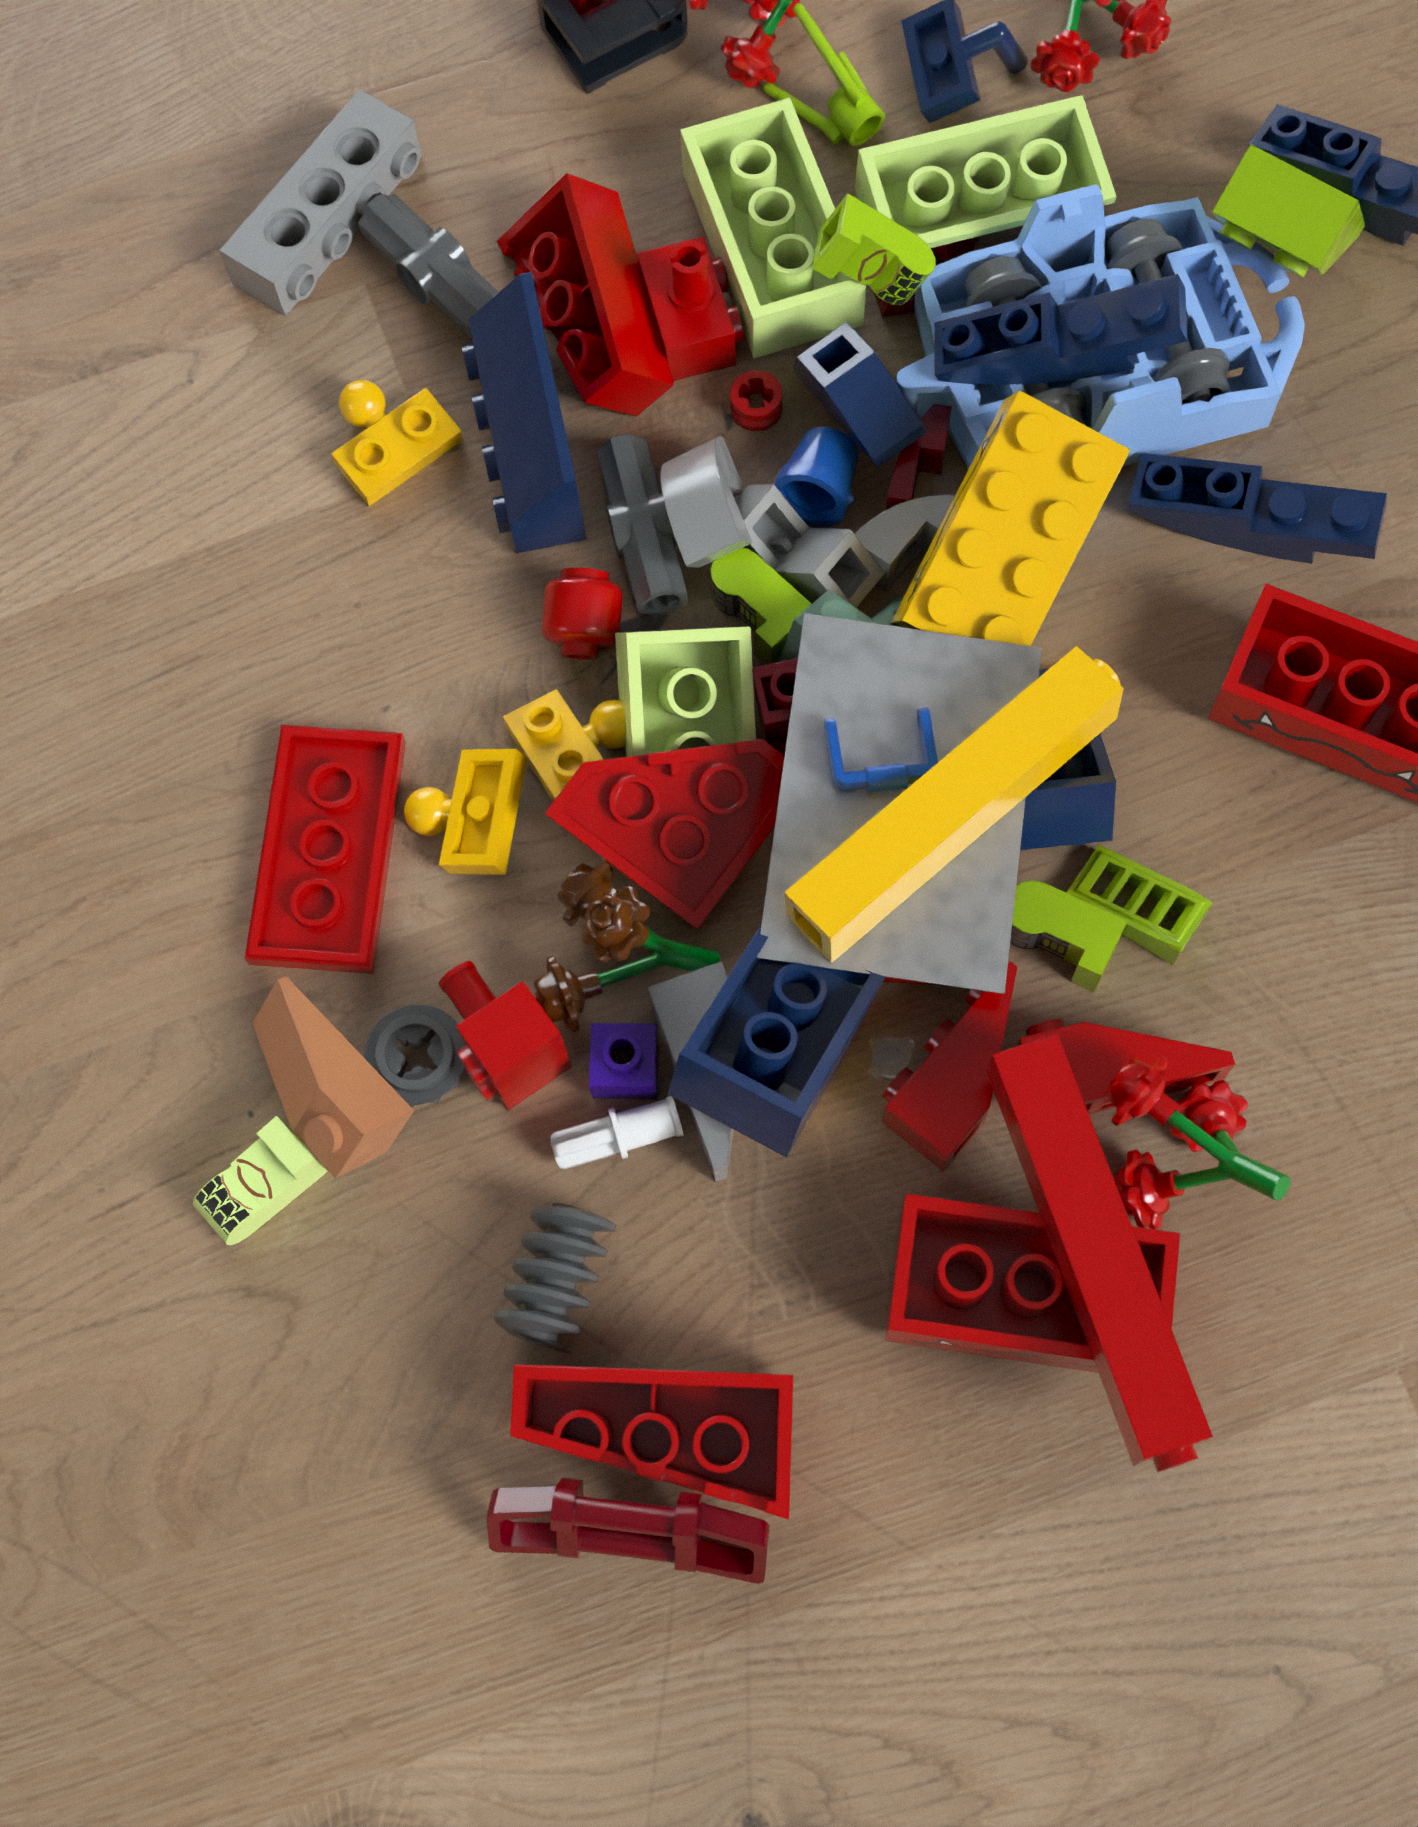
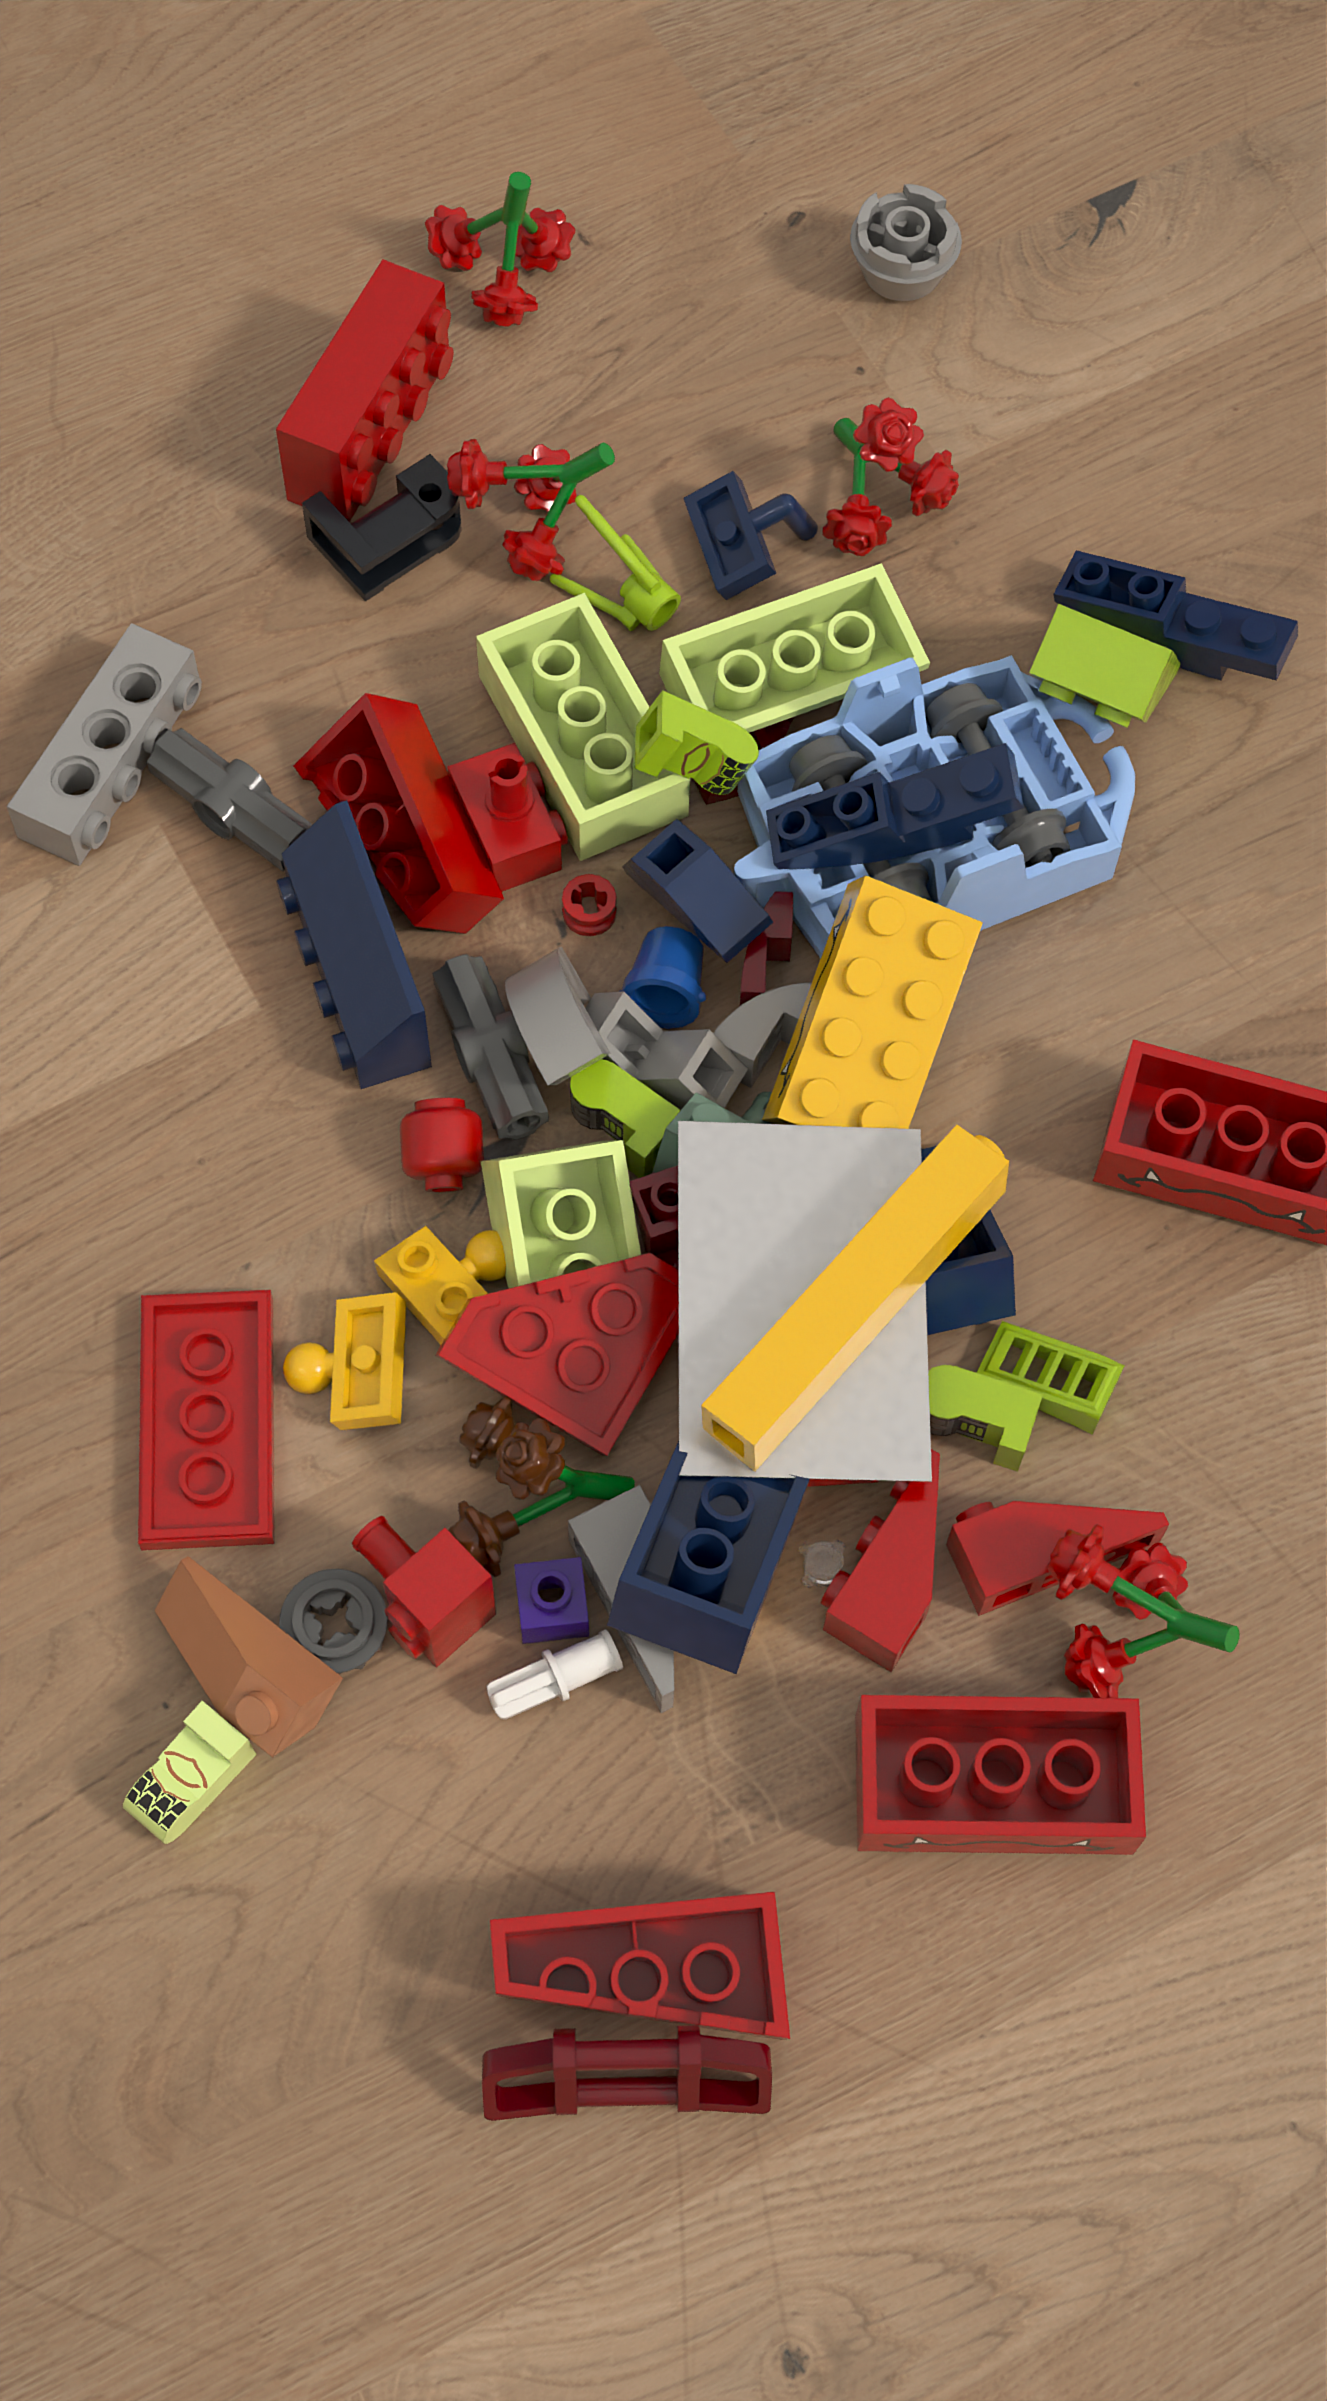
camera: 15 degrees left, 5 degrees down
(394, 443) = (215, 989): yellow plate -> none
(553, 1274) = (510, 1828): dark grey piece -> none
(881, 777) = (782, 1277): blue piece -> none
(1098, 1254) = (1061, 1728): red brick -> none
(1245, 512) = (1111, 969): dark blue slope -> none

